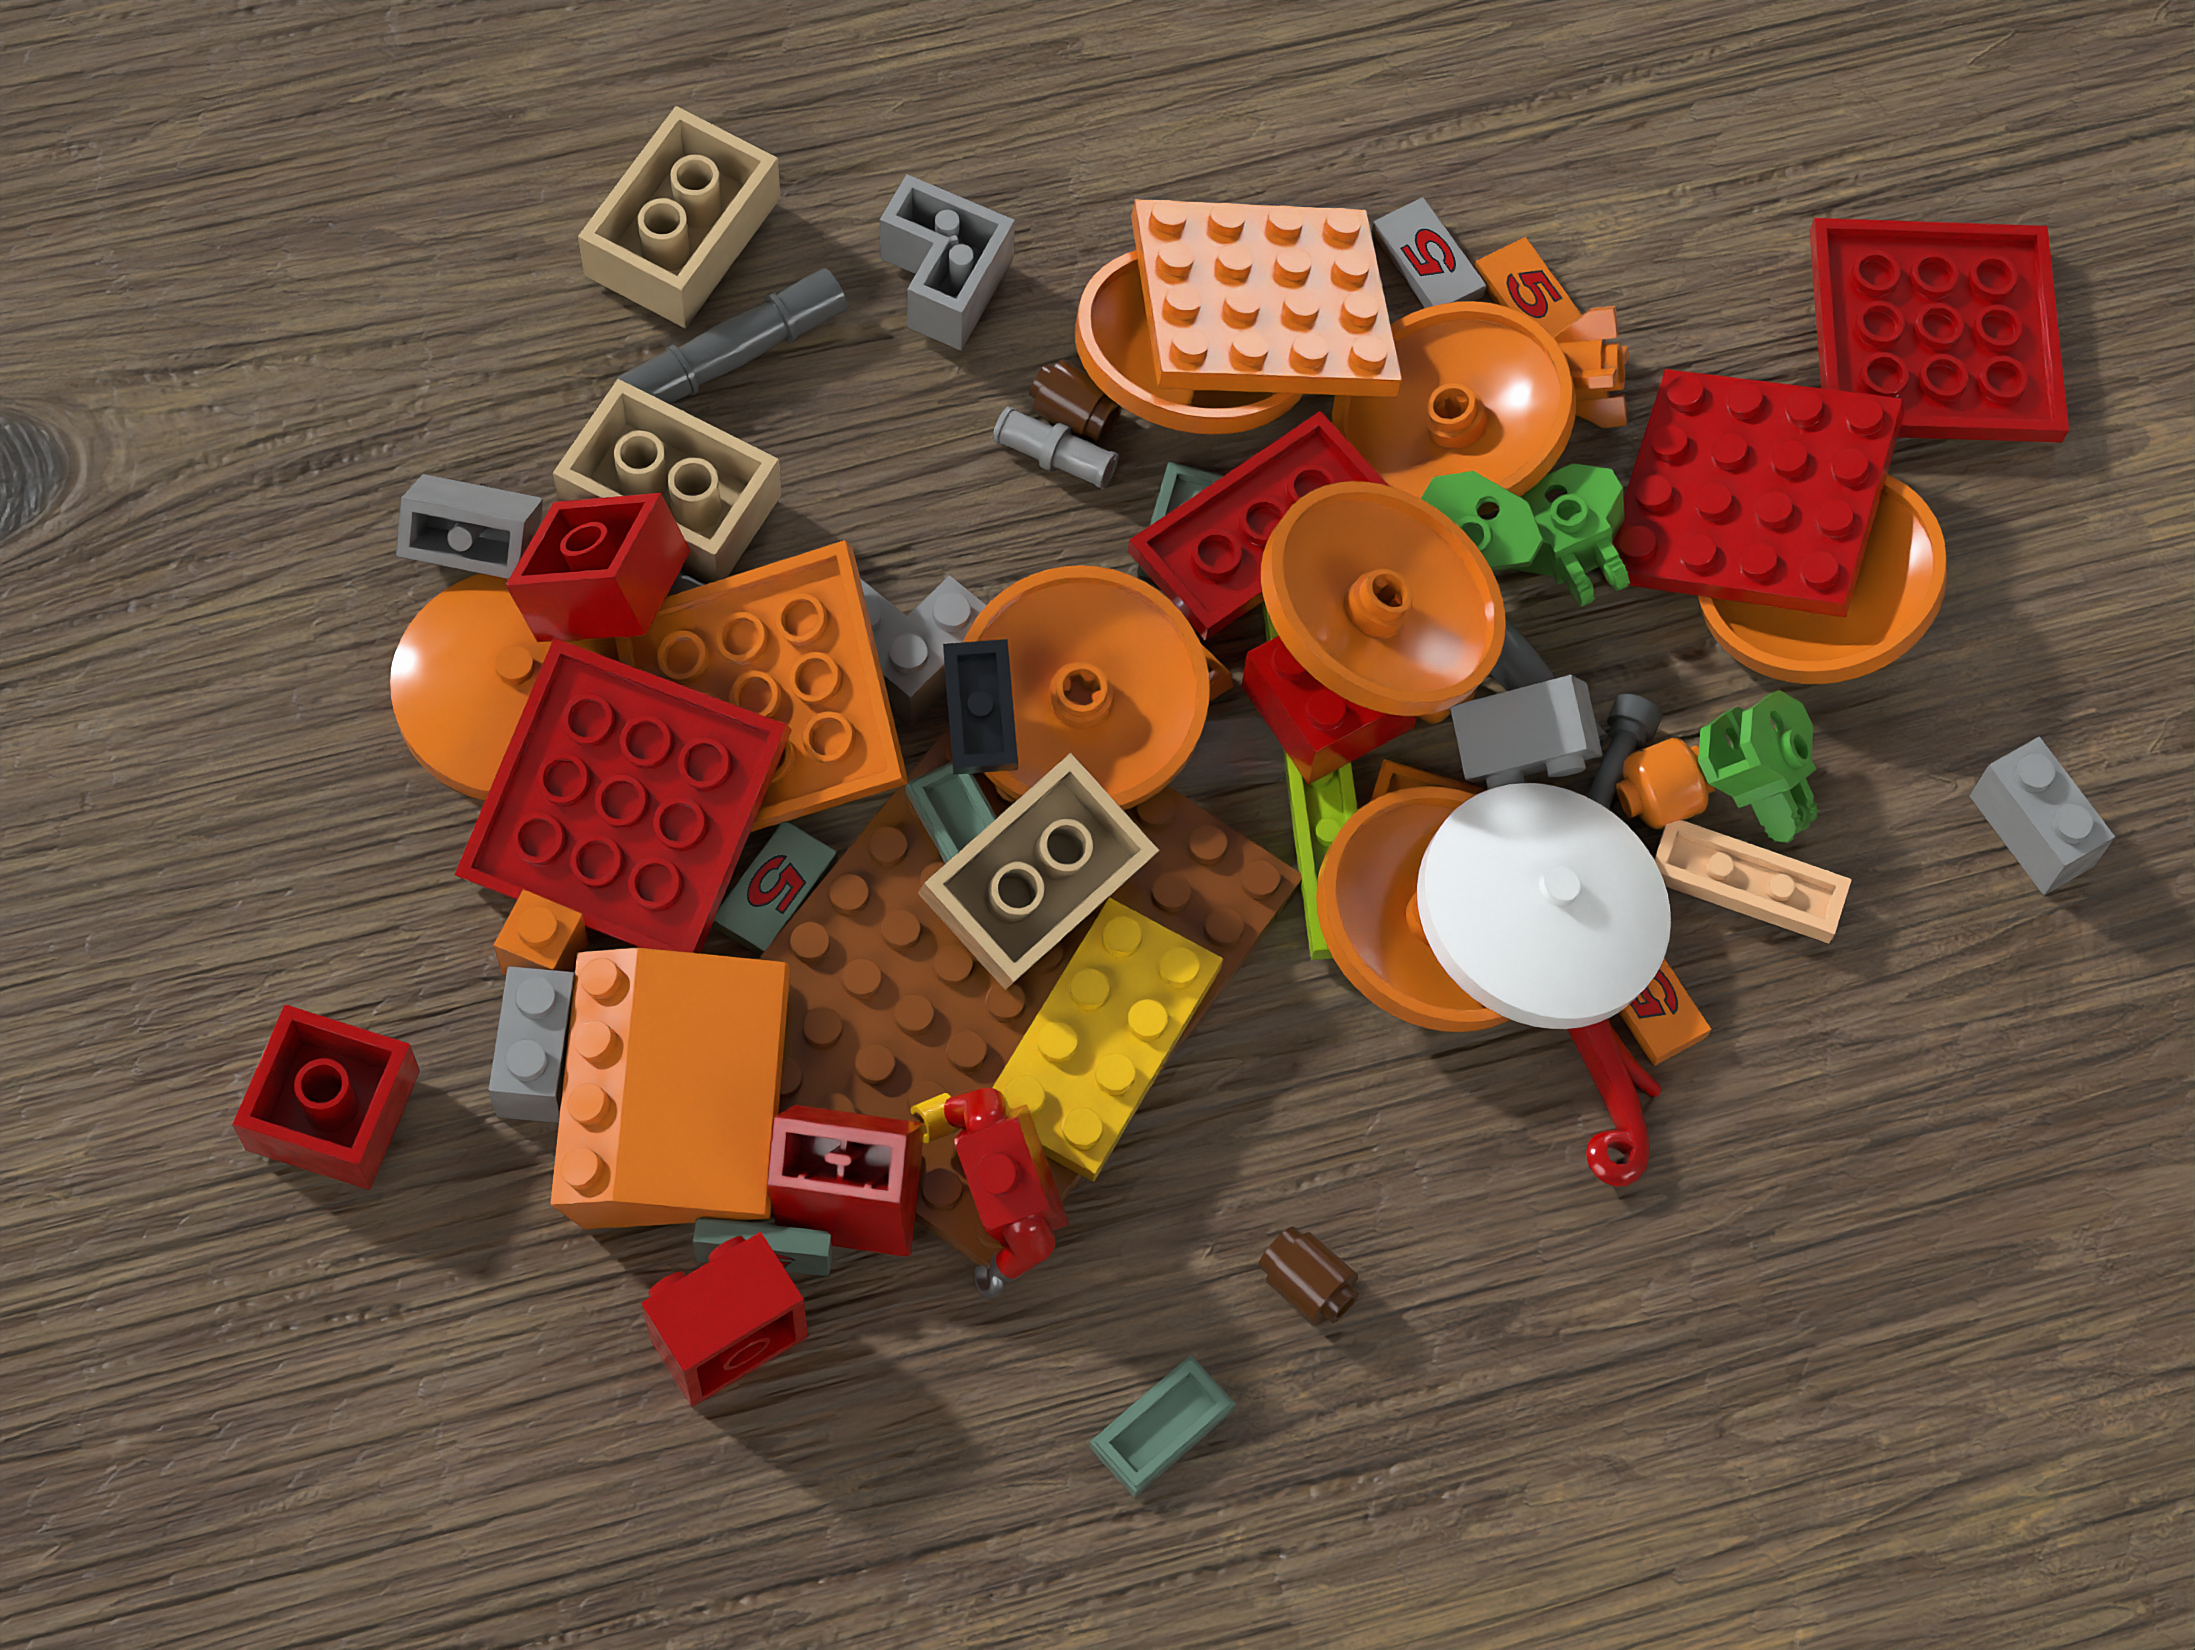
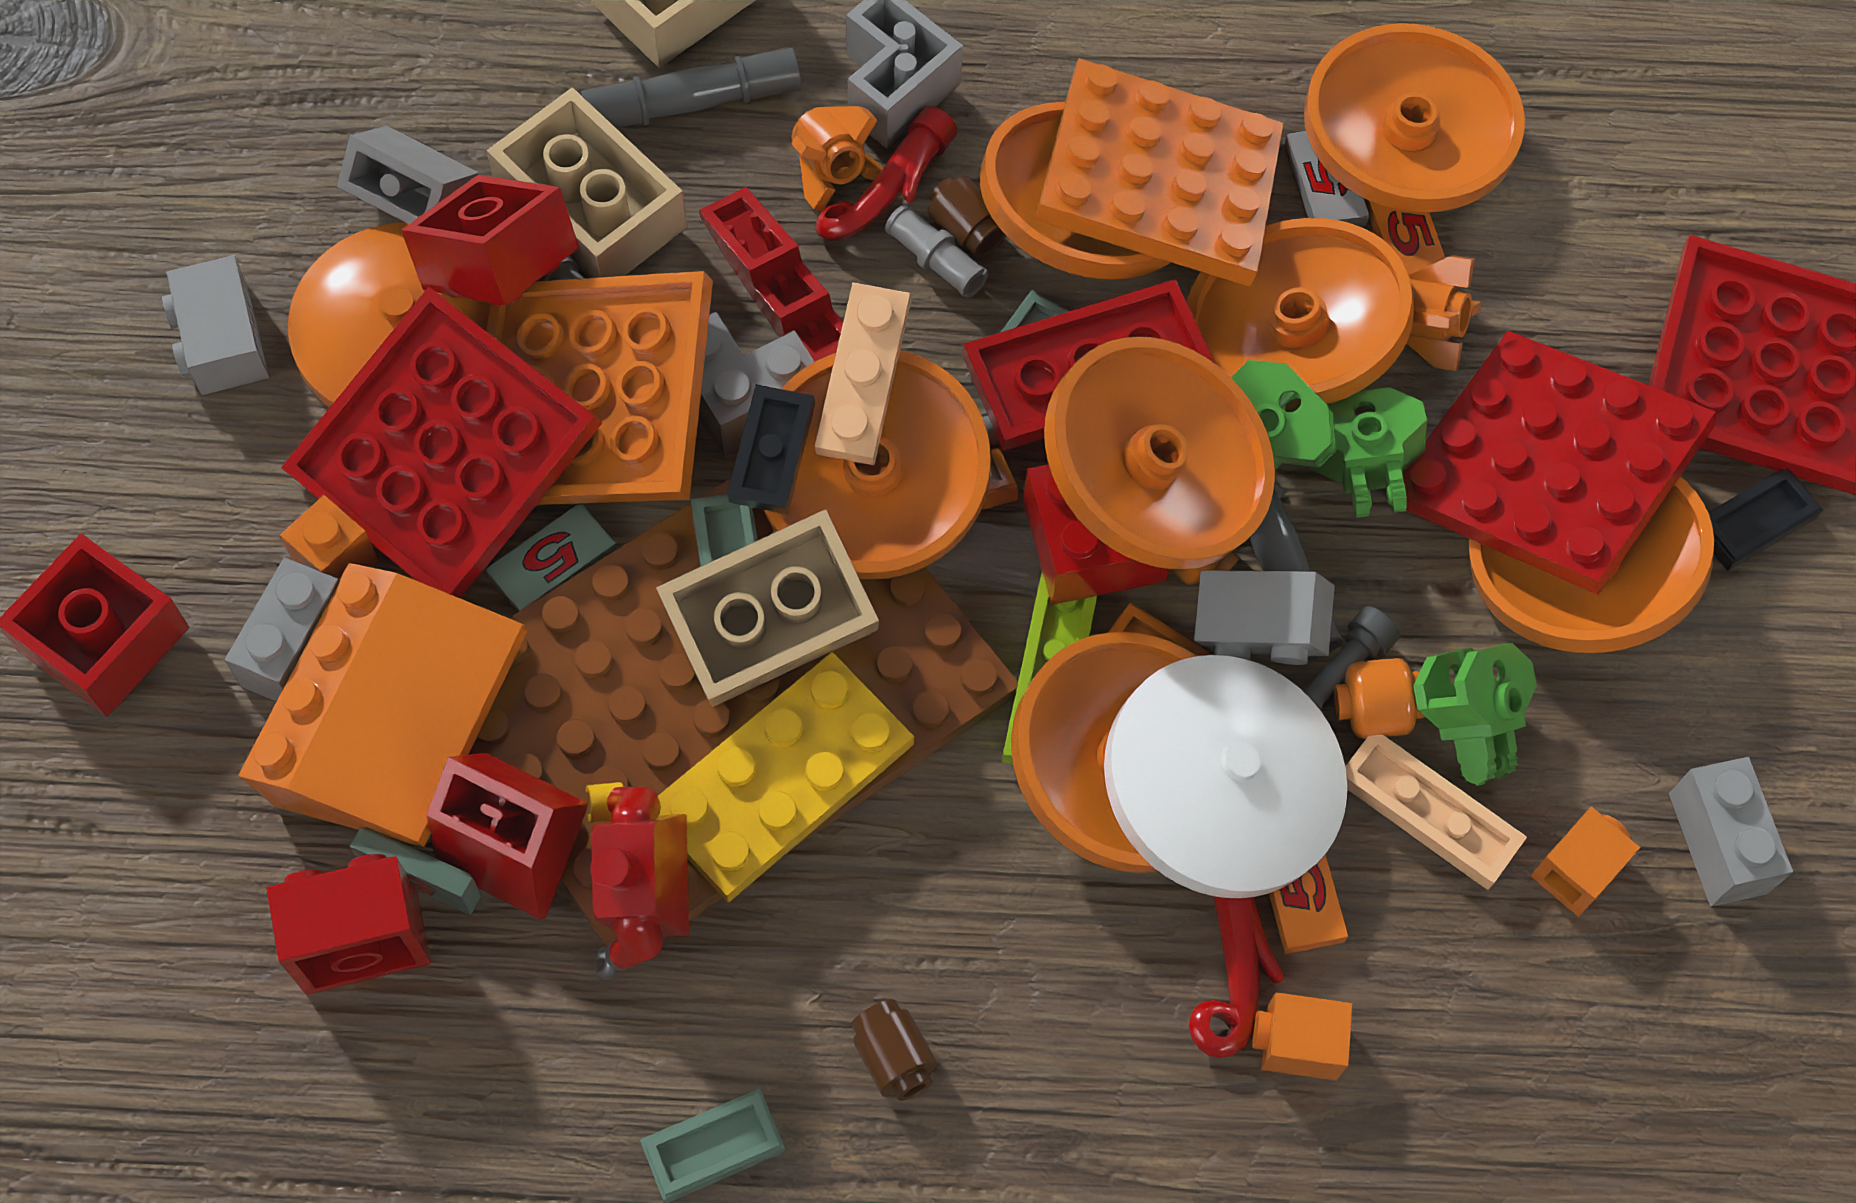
camera: 20 degrees right, 0 degrees up
(321, 742) = (215, 325): none -> light grey brick
(897, 522) = (773, 271): none -> red slope
(909, 369) = (833, 150): none -> orange brick
(1001, 328) = (927, 137): none -> red plant
(1046, 601) = (863, 374): none -> light nougat plate
(1499, 169) = (1414, 117): none -> orange dish
(1702, 1139) = (1304, 1036): none -> orange brick
(1914, 886) = (1586, 860): none -> orange brick
(1974, 490) = (1761, 517): none -> black tile

